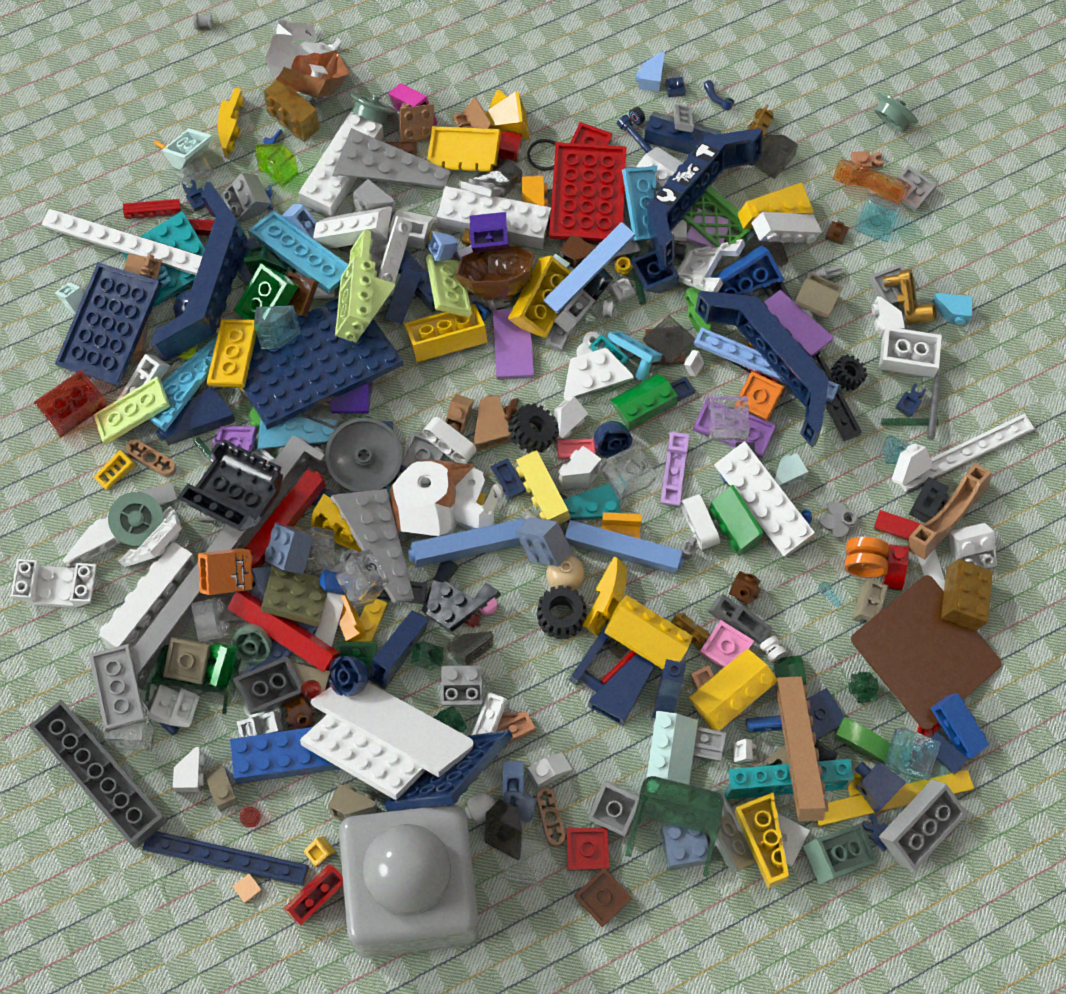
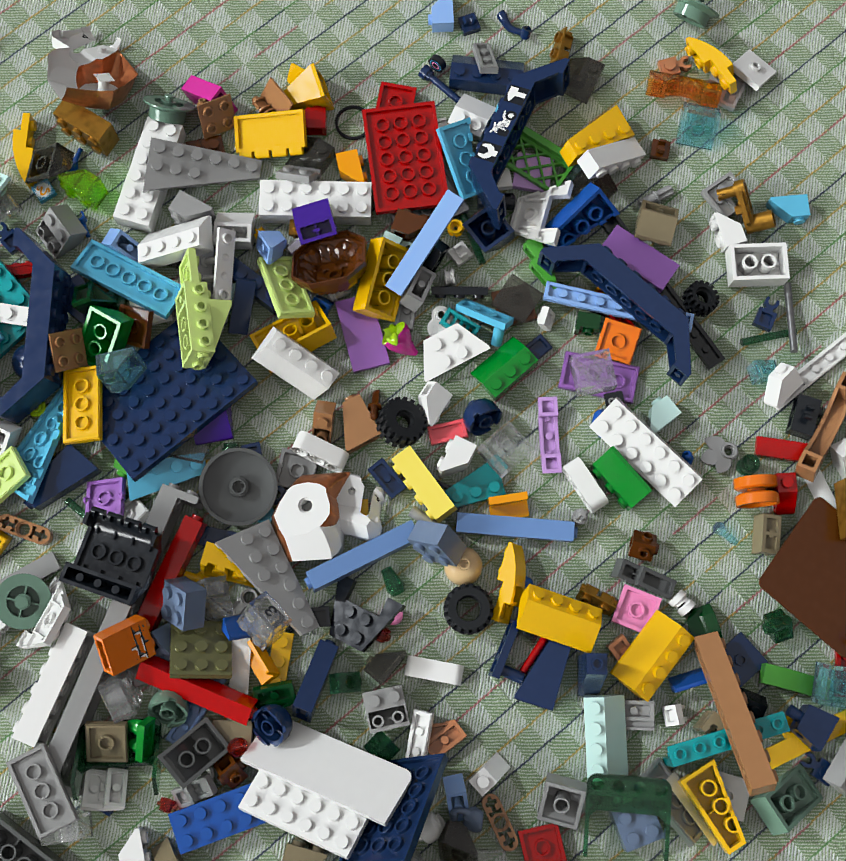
camera: 10 degrees left, 10 degrees up
(229, 733) = (166, 805): none -> clear red plate
(231, 299) = (68, 349): none -> medium nougat hinge
(238, 161) = (44, 191): none -> tile
(249, 133) = (49, 162): none -> clear smoke slope
(442, 355) = (295, 364): none -> white slope
(493, 574) = (392, 581): none -> clear green cone
(516, 663) = (434, 670): none -> white beam
(547, 355) = (399, 339): none -> hat
(614, 323) = (459, 291): none -> black plate
(730, 815) = (681, 795): none -> white sticker
(733, 375) = (588, 323): none -> dark green brick
(866, 530) = (749, 461): none -> clear green wheel
(904, 160) = (711, 59): none -> yellow slope
(942, 176) = (753, 70): none -> white plate

